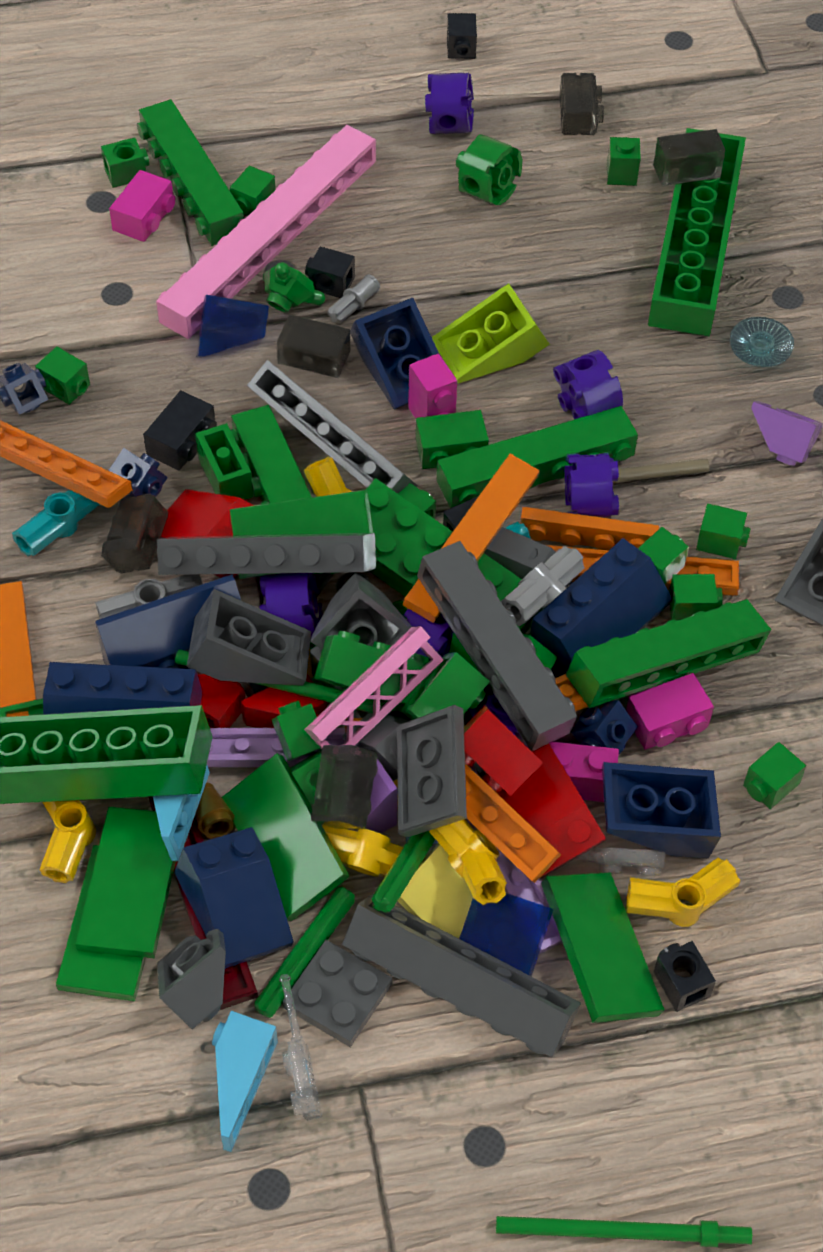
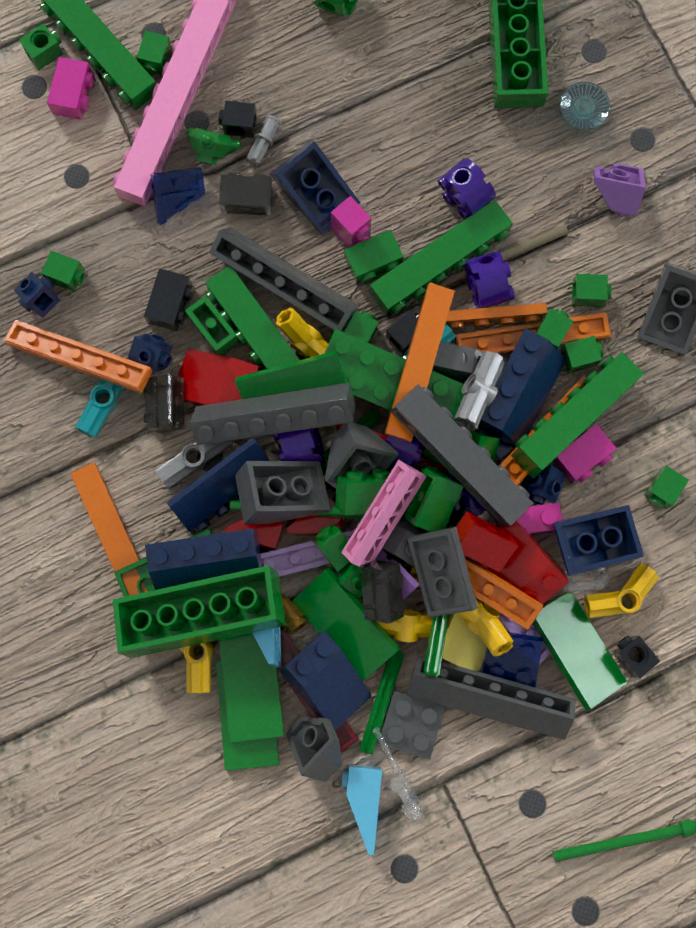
camera: 15 degrees left, 25 degrees up
(490, 337) = (378, 153): lime slope -> none

